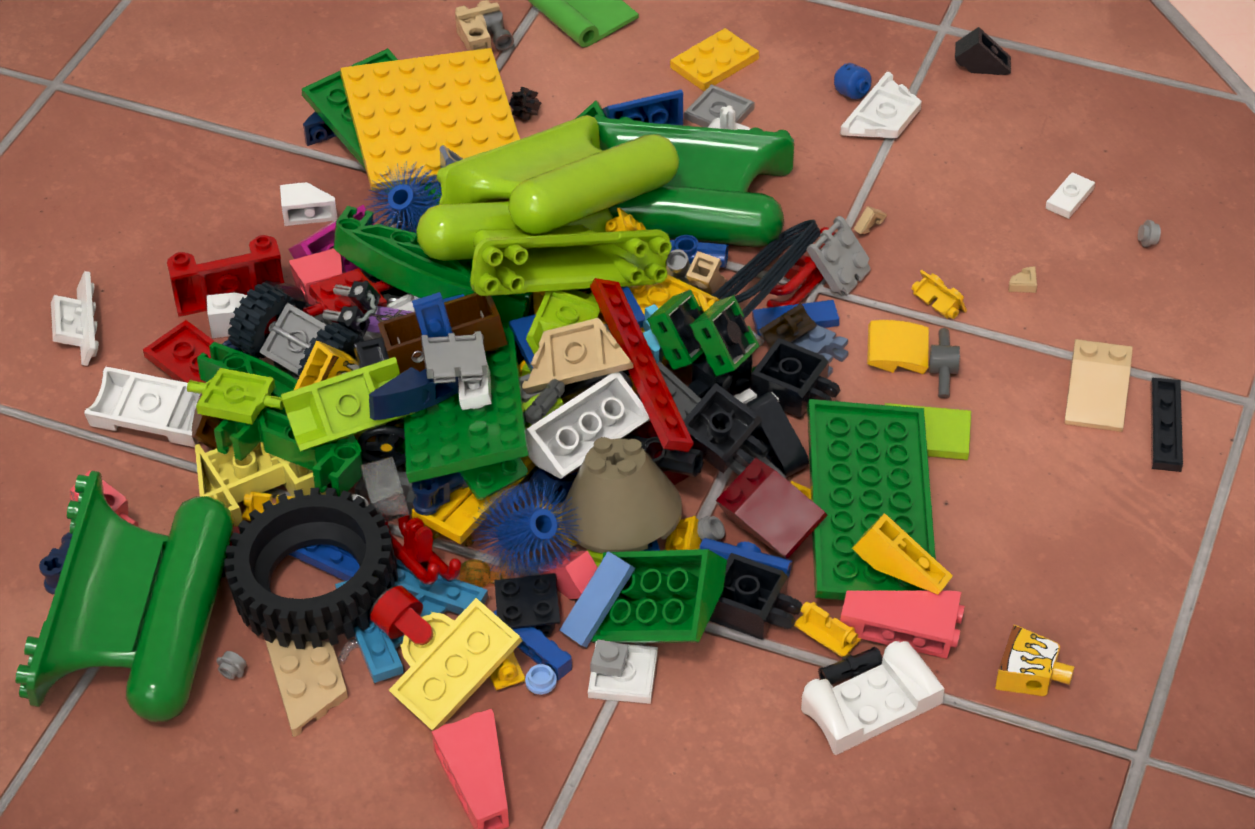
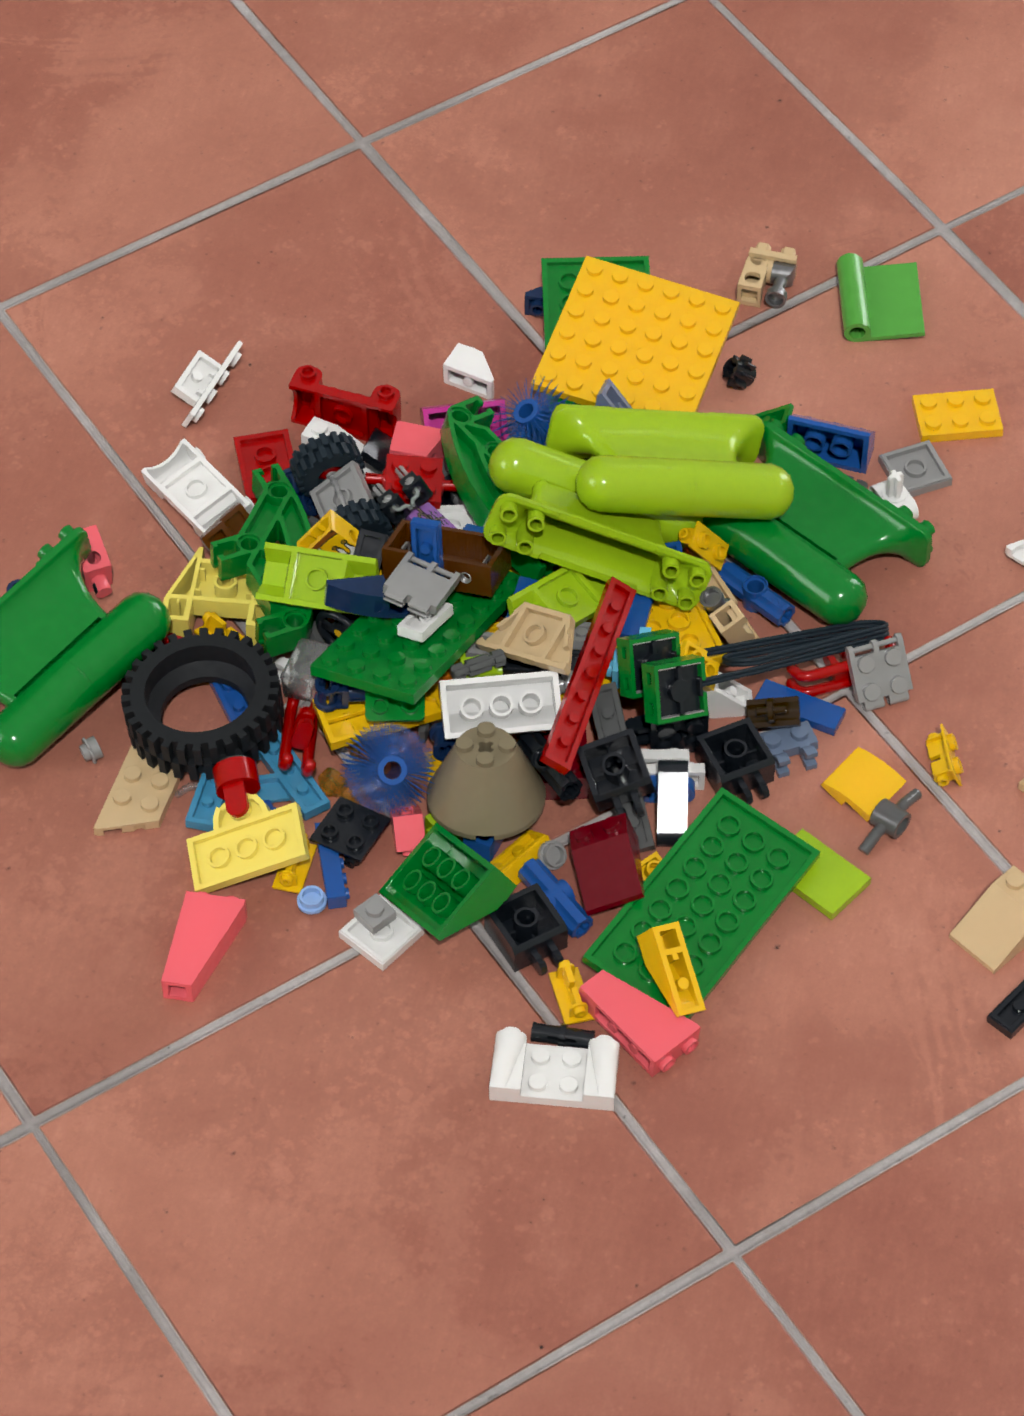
camera: 35 degrees right, 5 degrees up
(235, 395) = (245, 521): lime plate -> none
(597, 599) = (402, 859): medium blue tile -> none
(868, 219) = (949, 650): tan tile -> none
(1031, 664) = (707, 1121): yellow torso -> none

